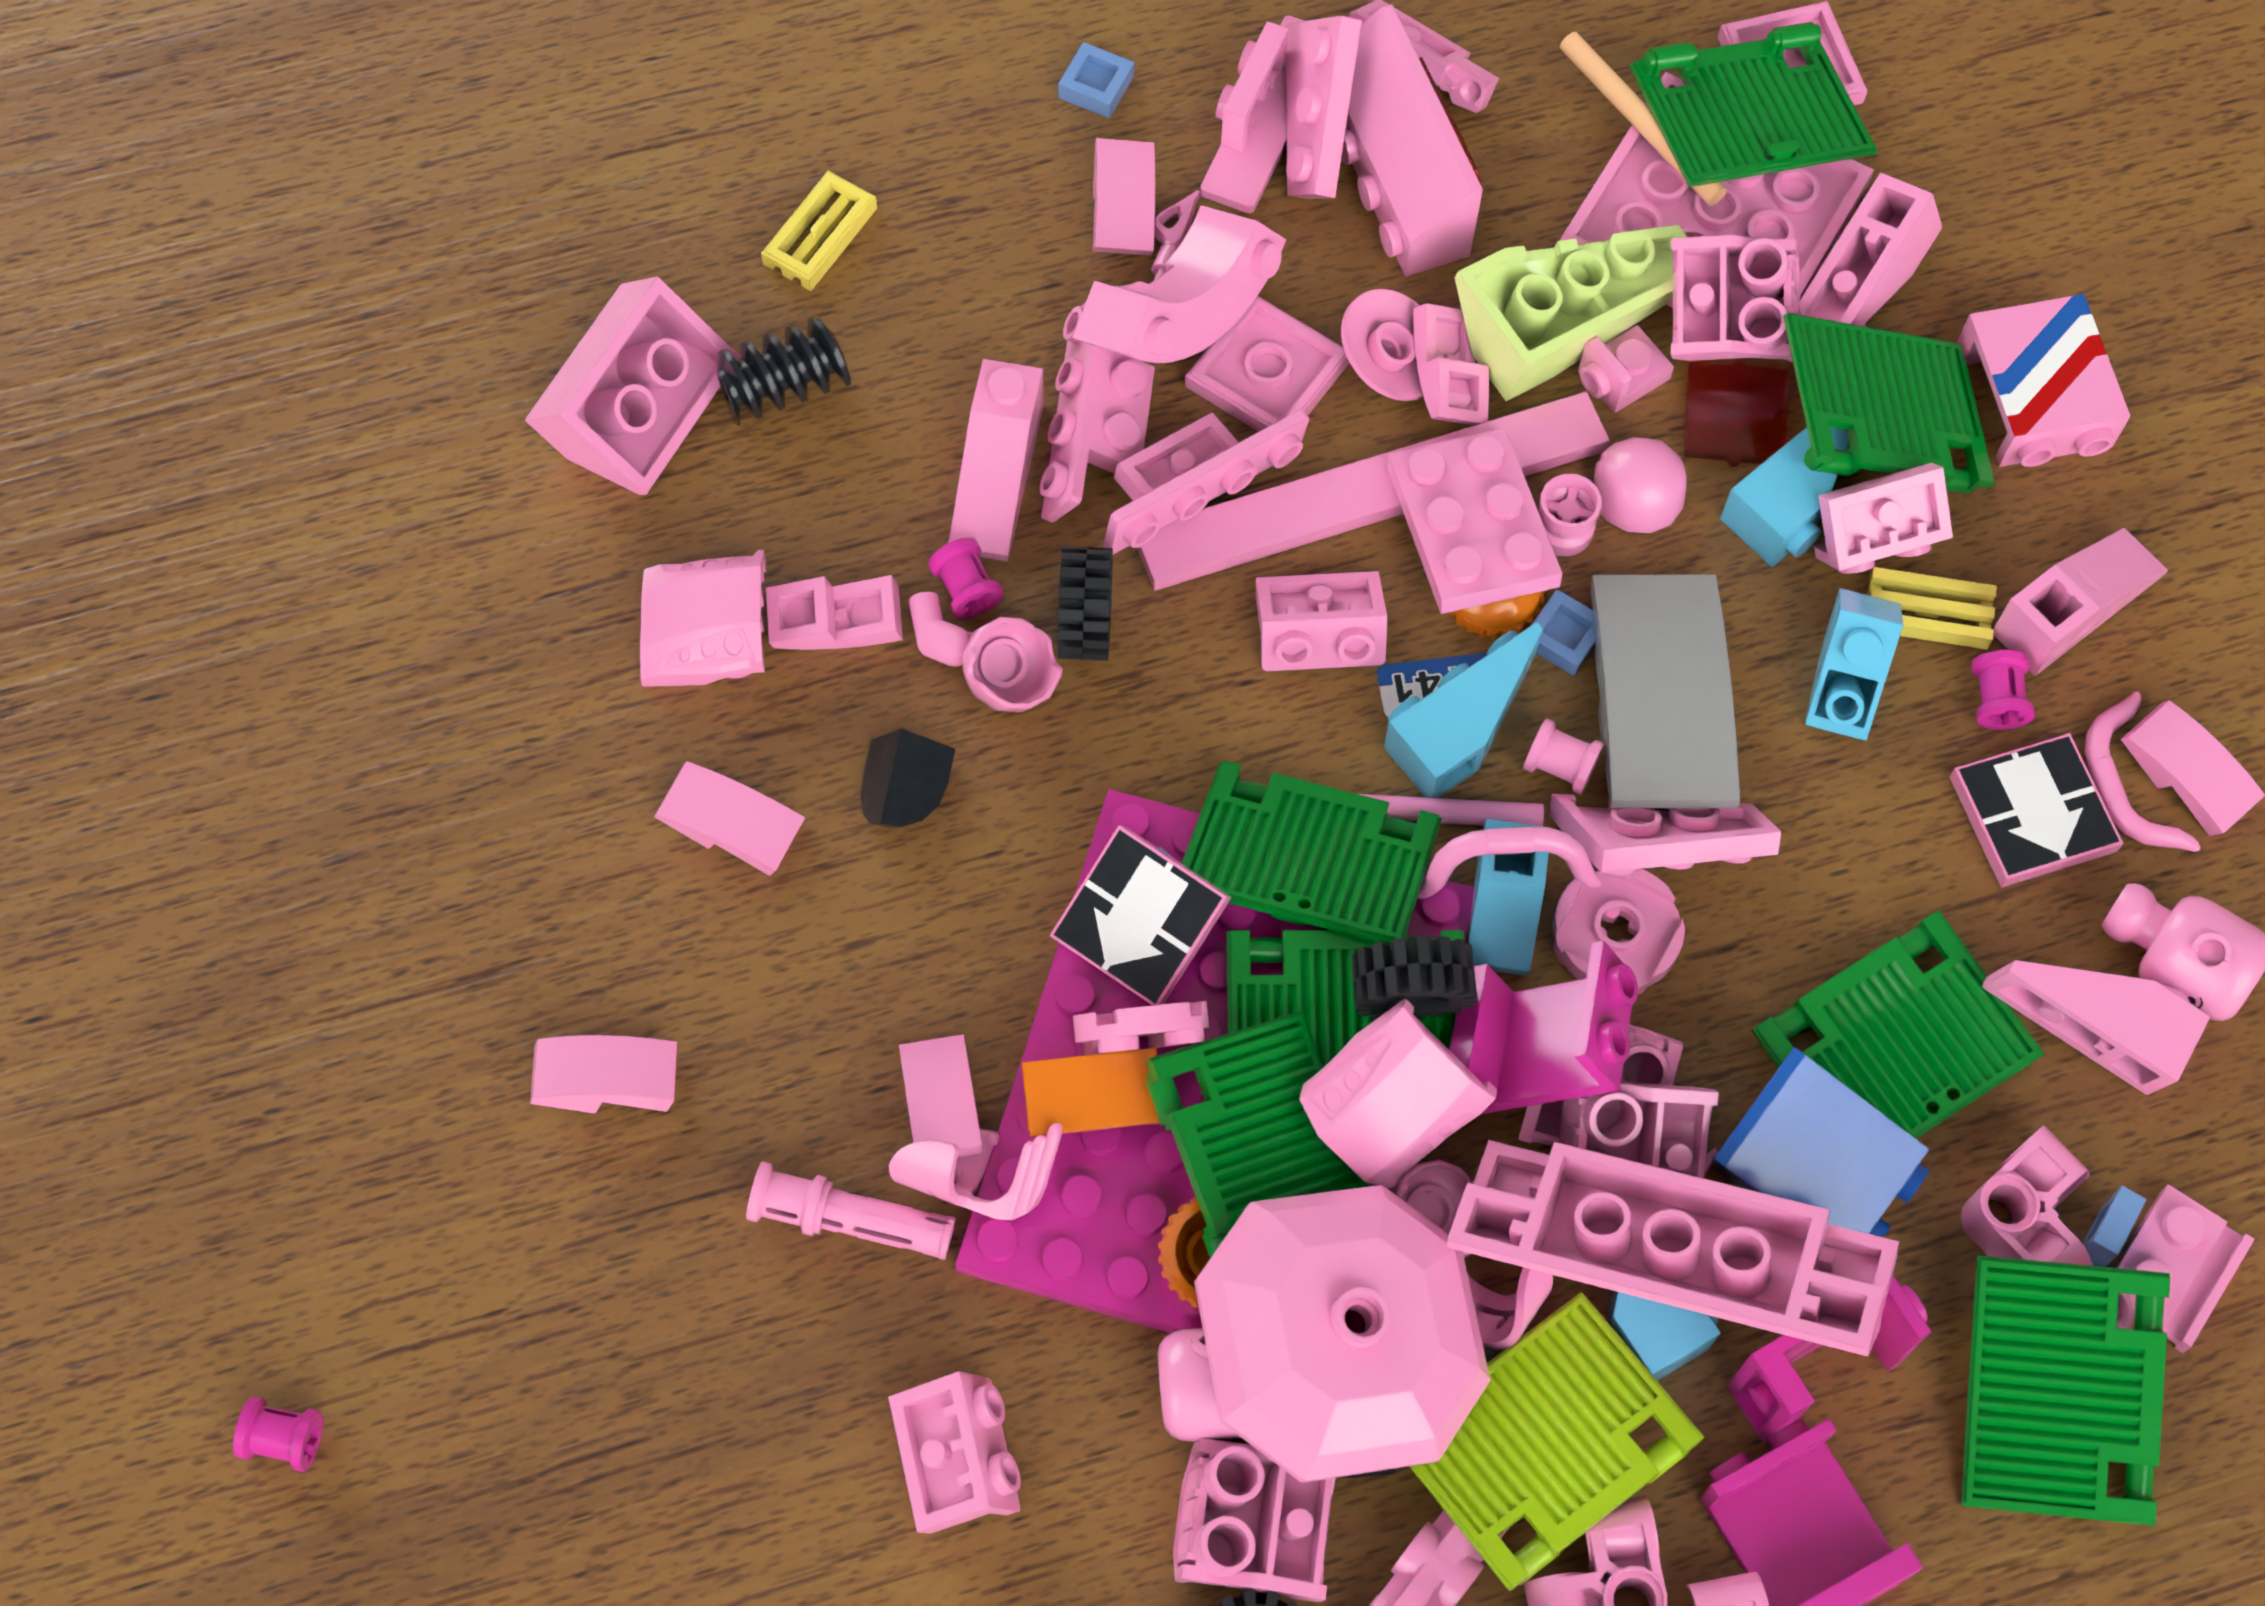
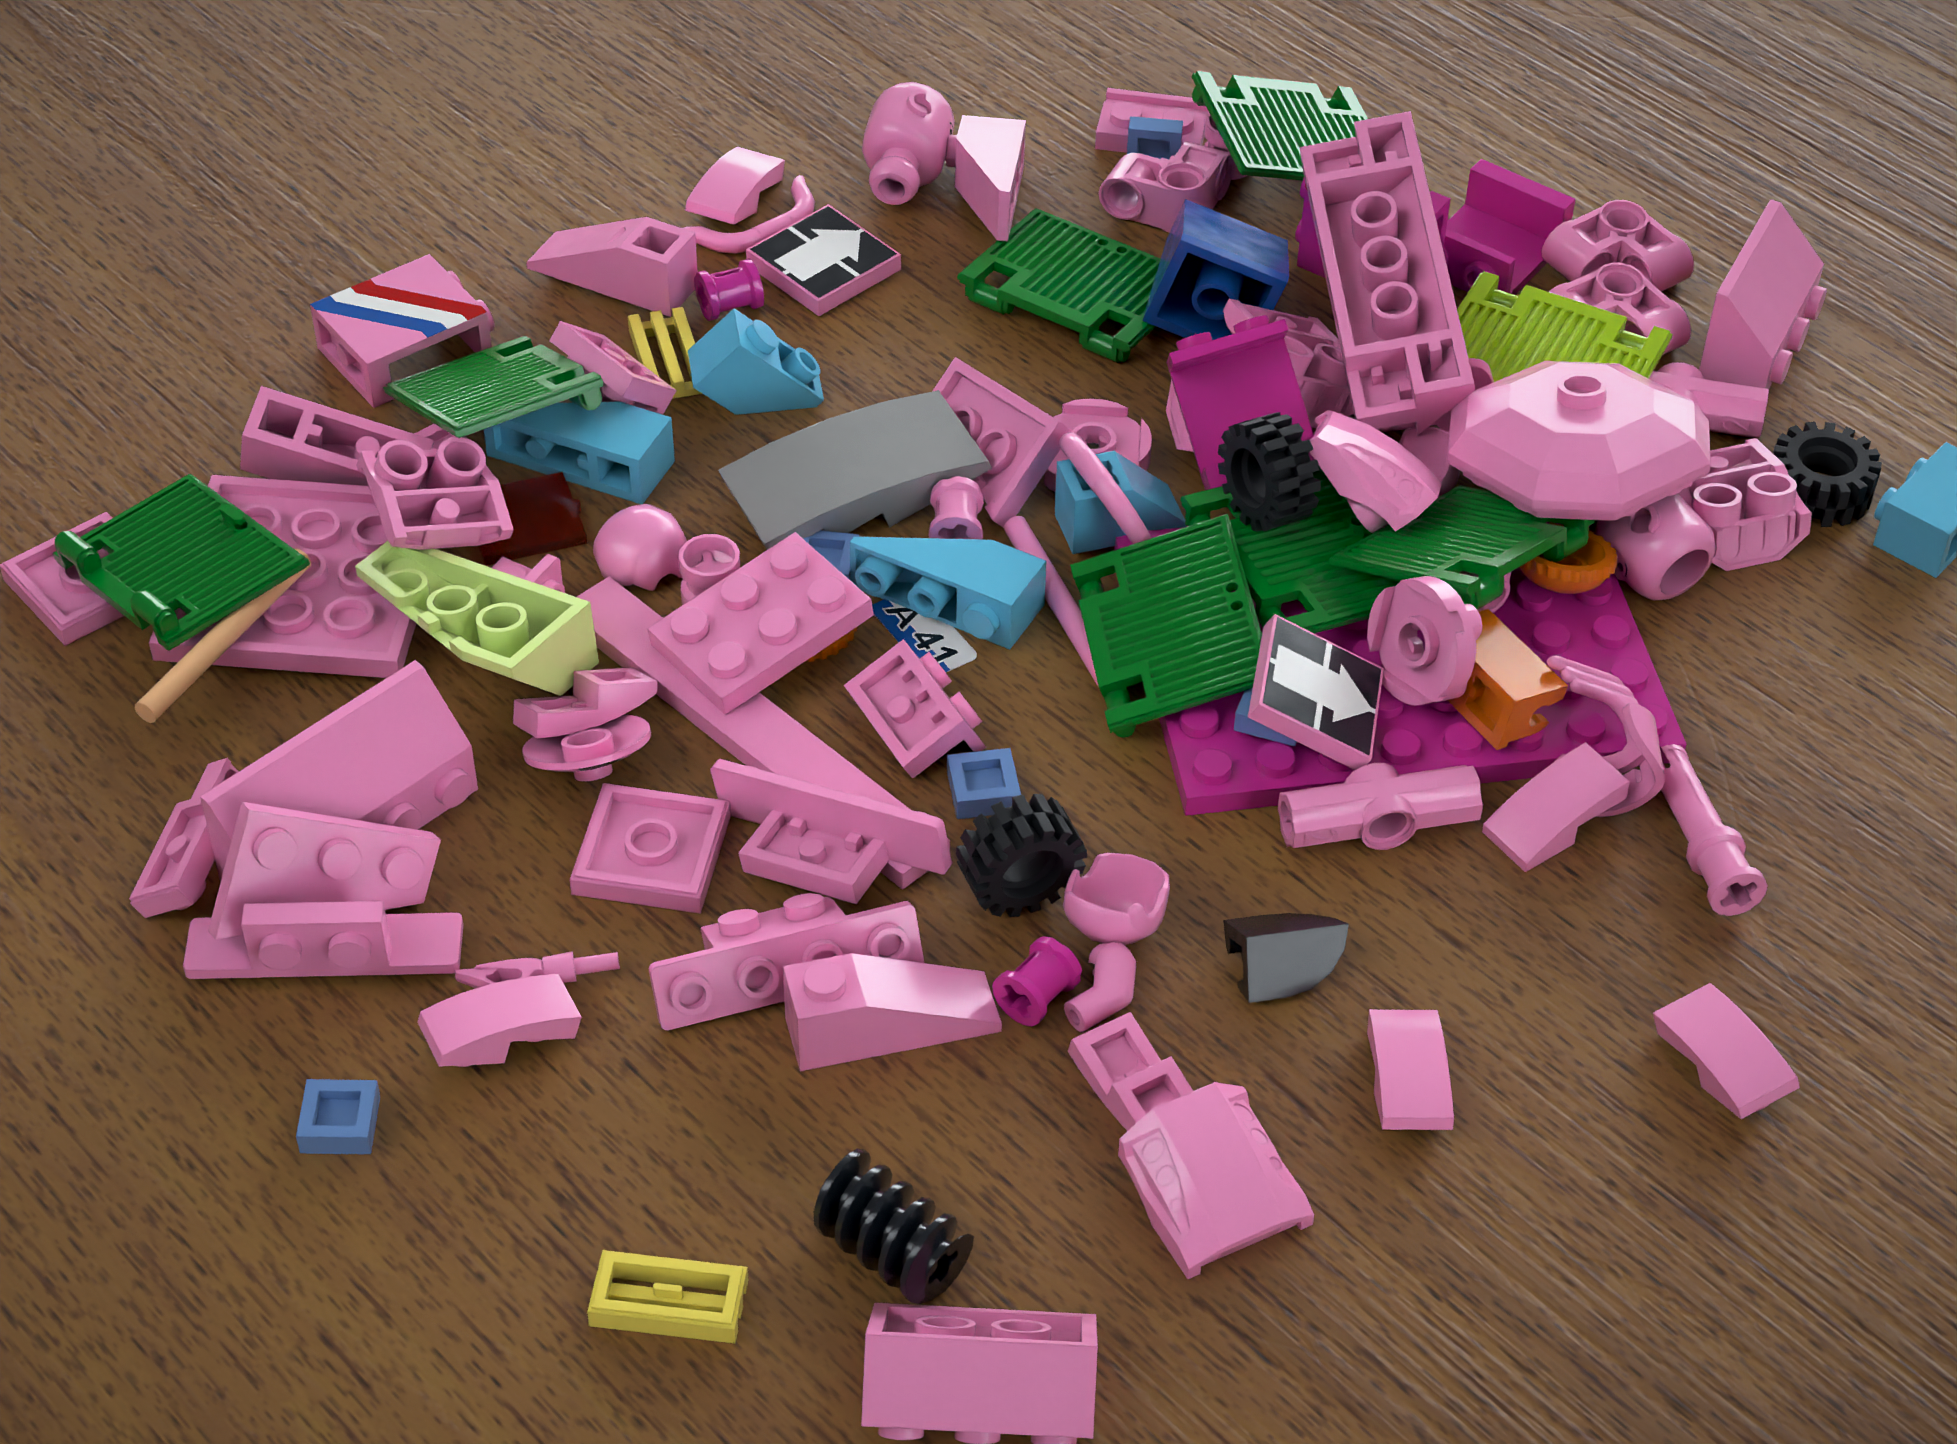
camera: 115 degrees left, 20 degrees down
(955, 1451) = (1835, 688): bright pink bracket -> none
(1015, 943) = (1380, 806): none -> bright pink piece
(1197, 299) = (630, 897): bright pink brick -> none
(1216, 644) = (981, 781): none -> medium blue tile

